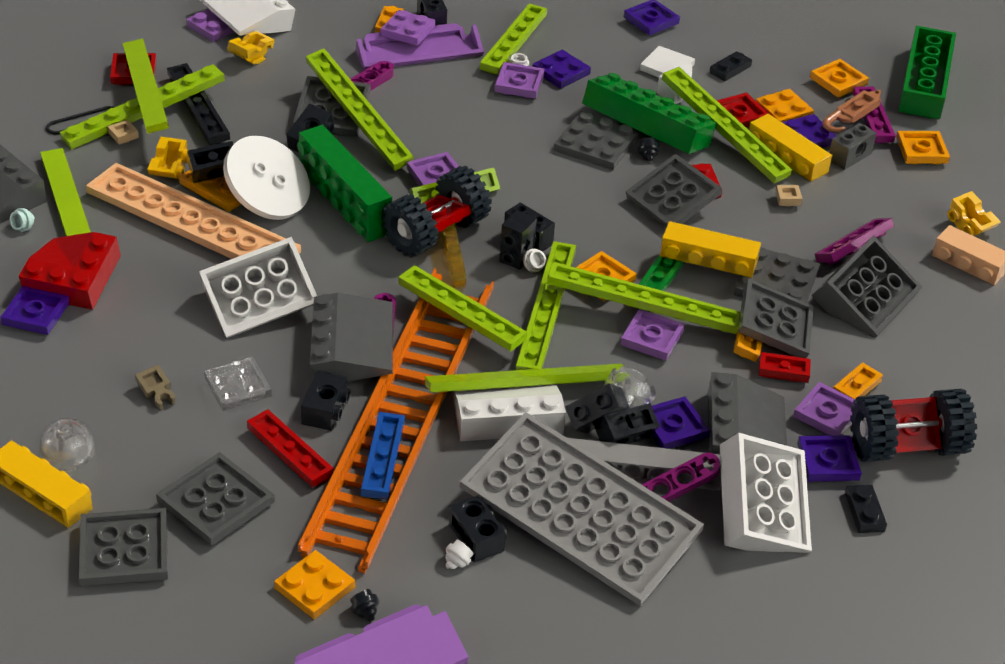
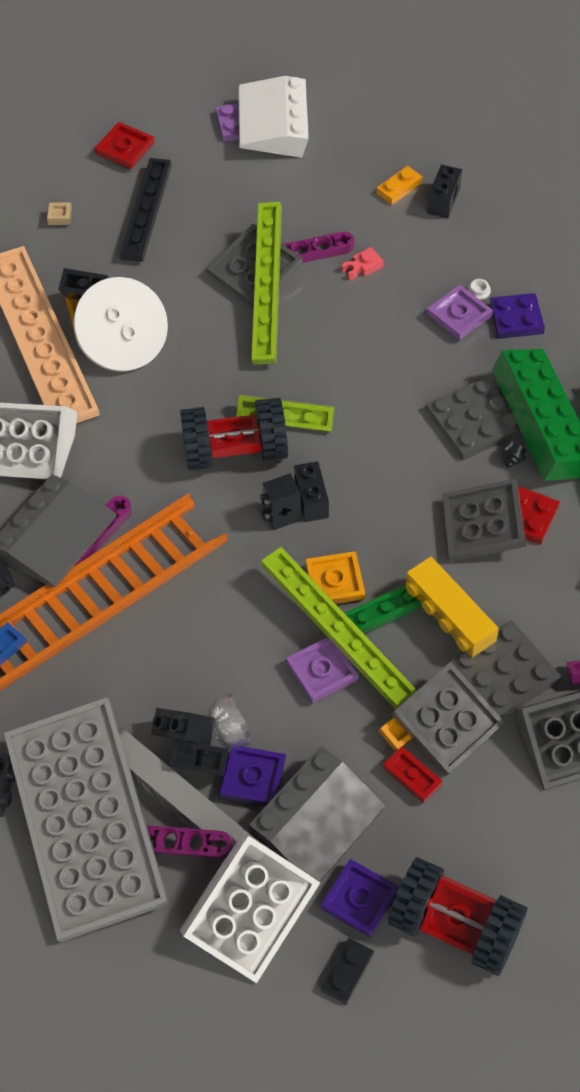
camera: 40 degrees right, 15 degrees up
(74, 116) = (44, 177): black piece -> none
(145, 86) = (104, 174): lime tile -> none
(169, 158) = (72, 256): yellow cylinder -> none
(170, 94) = (97, 192): lime plate -> none
(252, 47) = (241, 167): yellow cylinder -> none
(310, 118) = (198, 283): black brick -> none
(344, 181) = (184, 357): green brick -> none
(408, 27) = (402, 203): medium lavender plate -> none
(412, 77) = (363, 262): none -> coral plate
(430, 168) = (287, 382): medium lavender plate -> none
(440, 44) = (390, 225): medium lavender slope -> none
(454, 257) = (220, 488): clear yellow beam -> none
(462, 308) = (167, 552): lime plate -> none
(492, 412) = (127, 671): white slope -> none
(513, 38) = (499, 257): lime plate -> none
(519, 378) = (162, 656): lime tile -> none
(534, 260) = (287, 528): white plate -> none
(544, 312) = (247, 591): lime plate -> none
(825, 410) = (407, 839): medium lavender plate -> none
(859, 381) = (466, 833): light orange plate -> none

